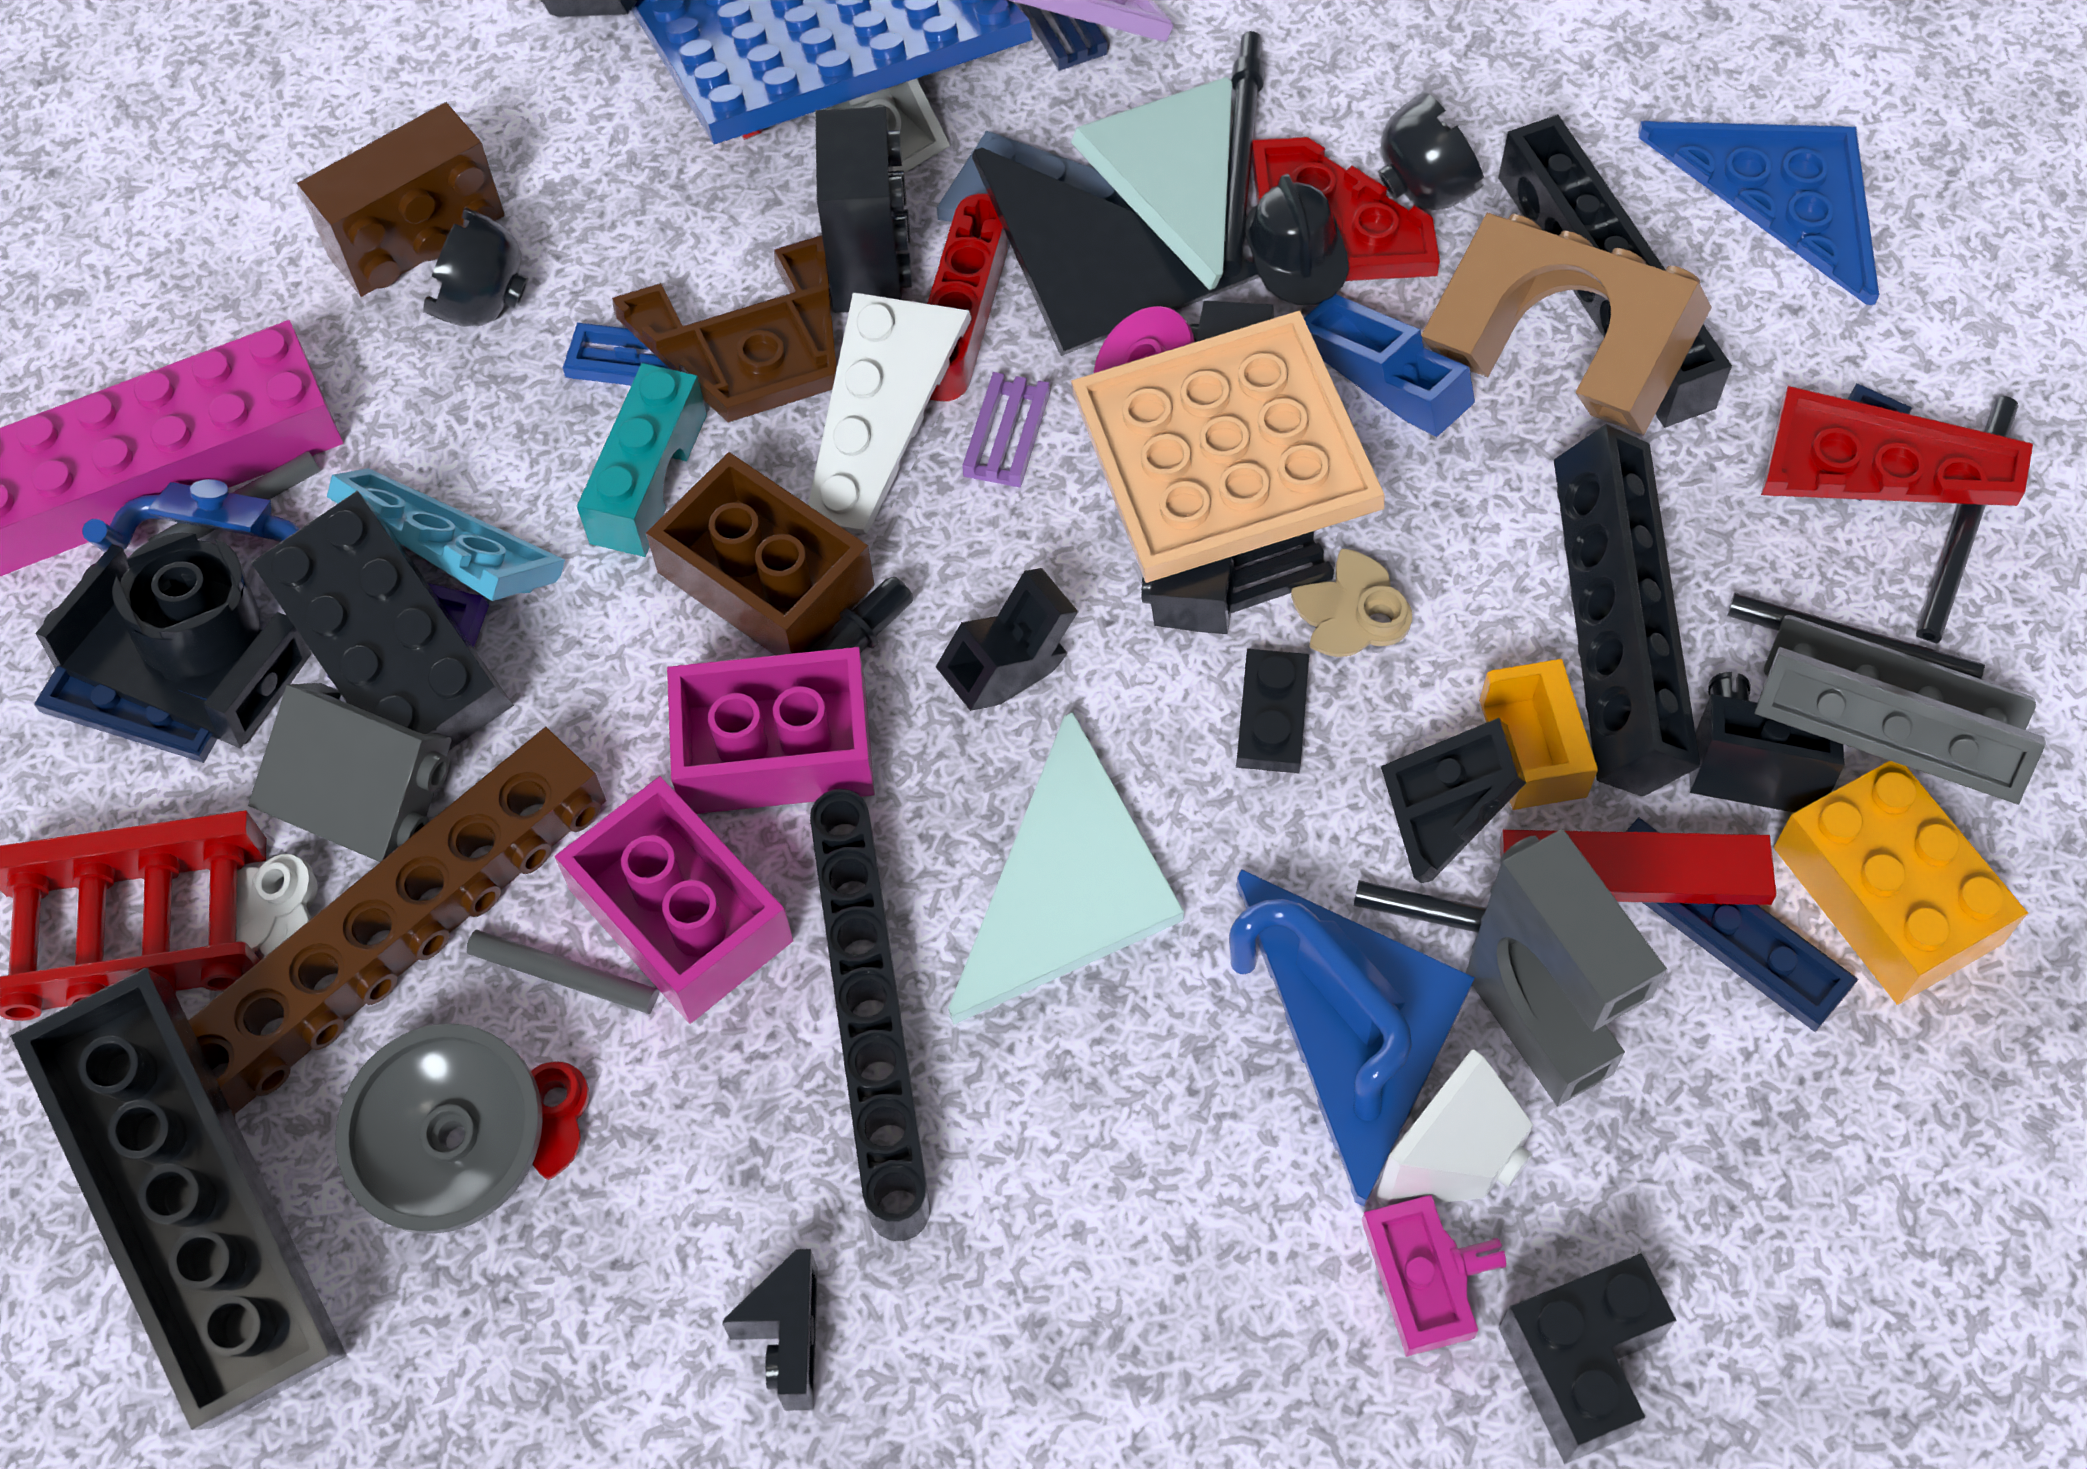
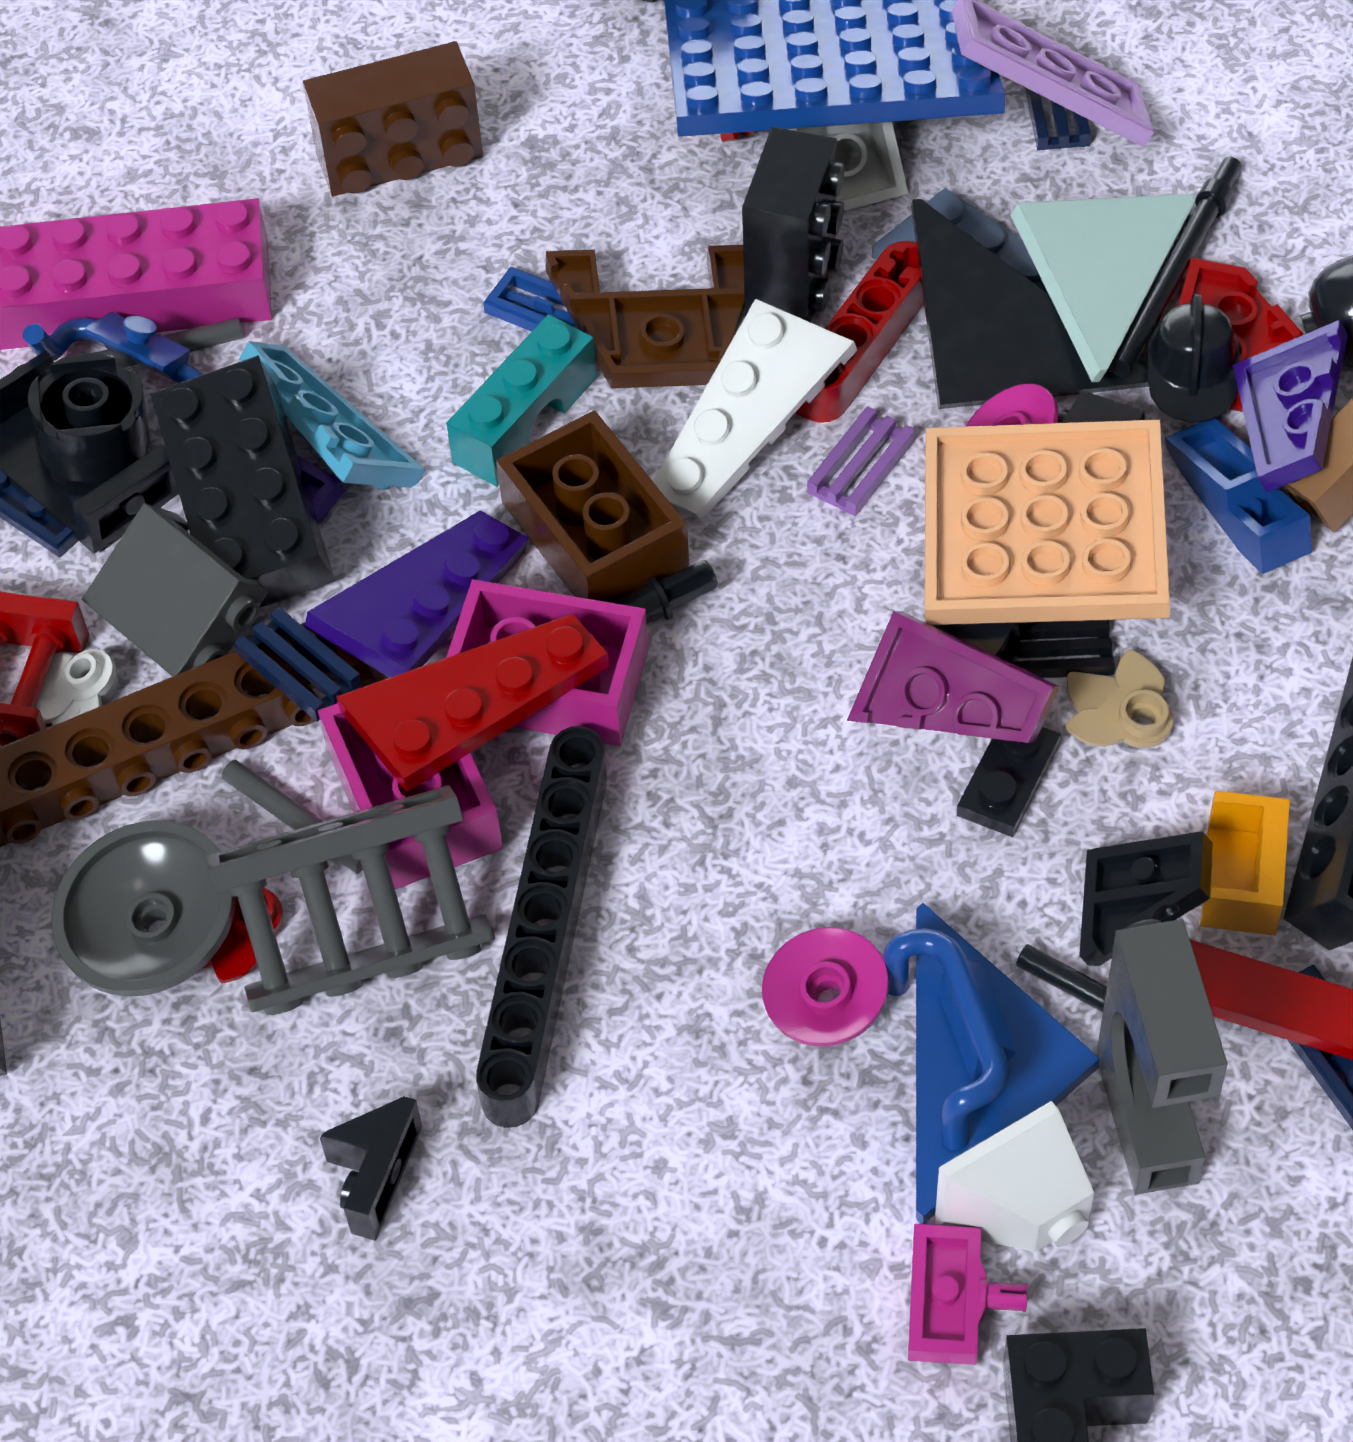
camera: 20 degrees right, 5 degrees down
(476, 273) = (435, 199): black cylinder -> none
(523, 788) = (269, 636): none -> dark blue tile
(602, 1022) = (306, 854): none -> dark grey fence
(613, 703) = (415, 602): none -> dark purple wing
(706, 803) = (463, 701): none -> red wing
(1011, 651) = (788, 655): black brick -> none
(1070, 886) = (762, 874): light aqua tile -> none
(1176, 958) = (820, 962): none -> dark pink dish
(1190, 638) = (949, 686): none -> magenta wing
(1413, 260) = (1291, 403): none -> dark purple wing

